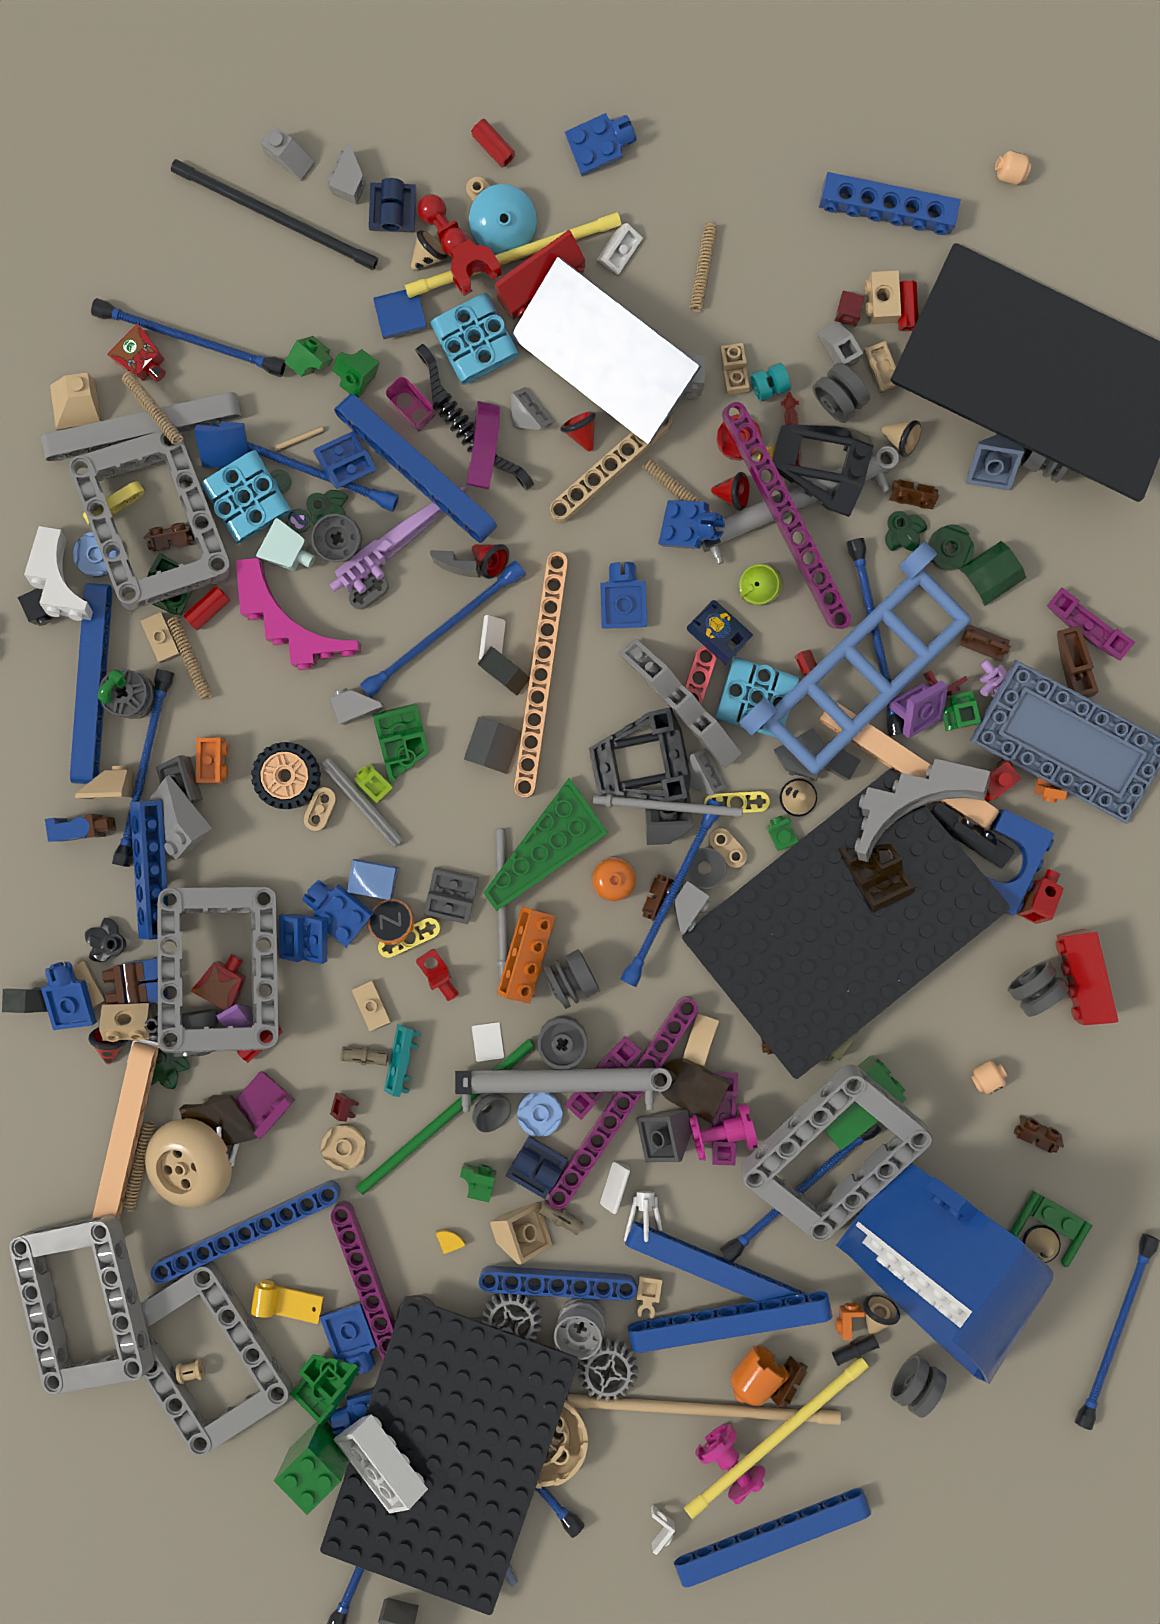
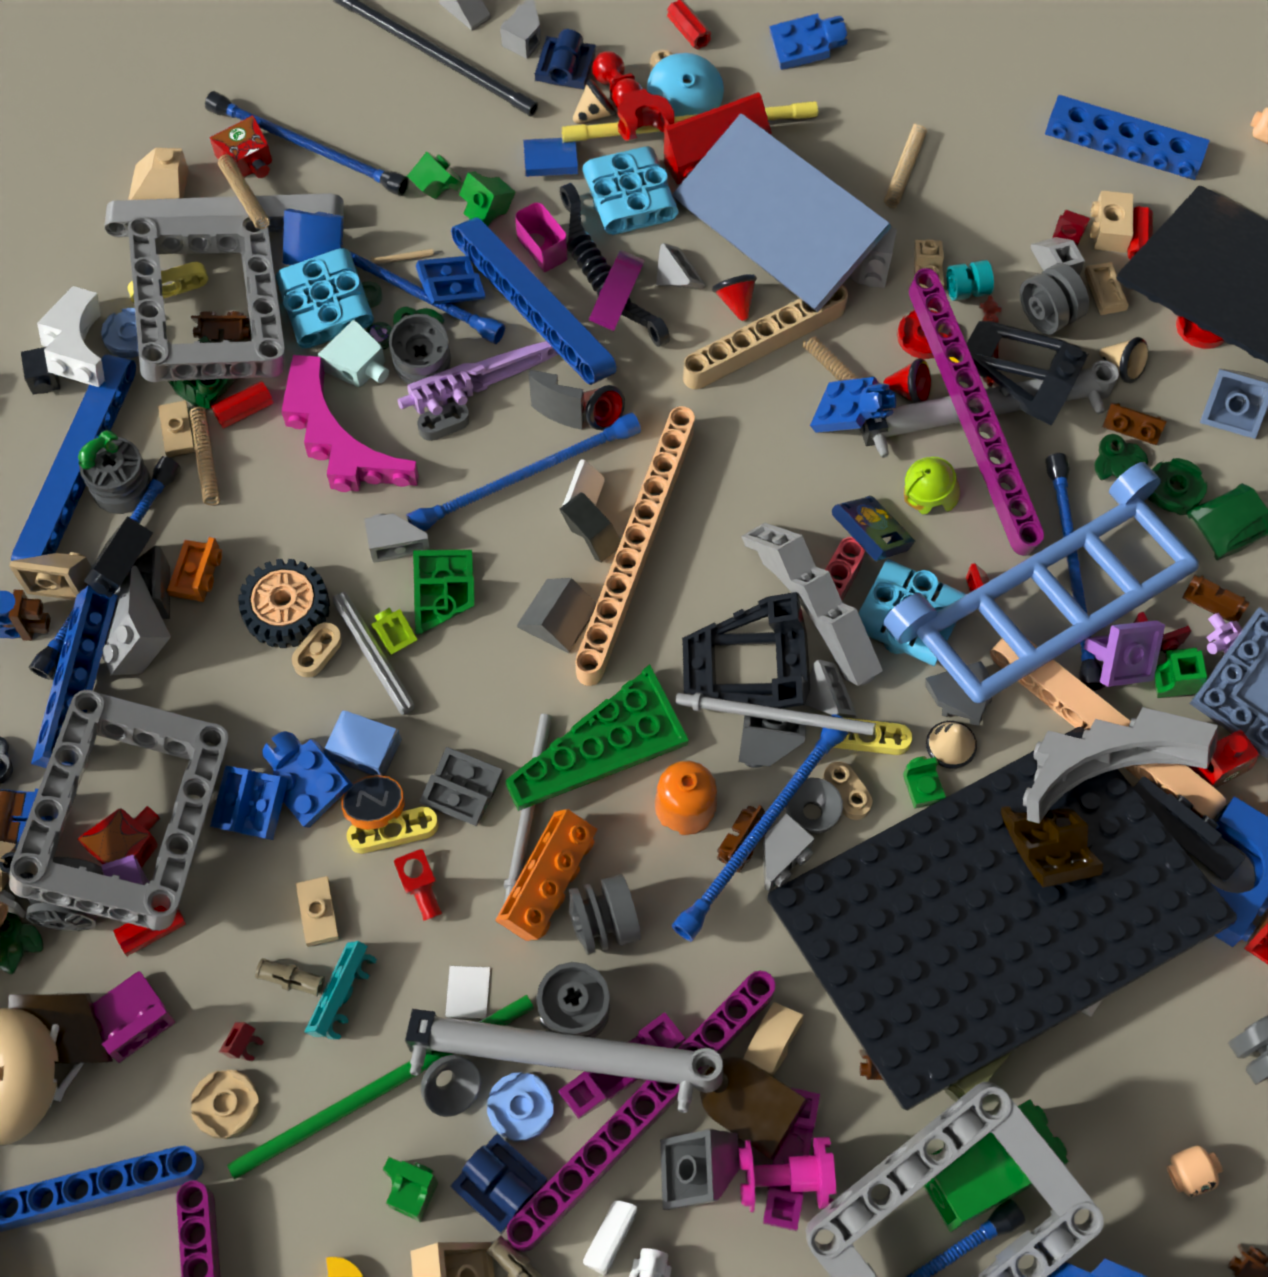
camera: 10 degrees right, 25 degrees down
(153, 775) = (118, 557): none -> black slope
(619, 248) = (813, 136): white slope -> none
(623, 598) = (756, 474): blue plate -> none
(843, 765) = (1014, 708): black brick -> none

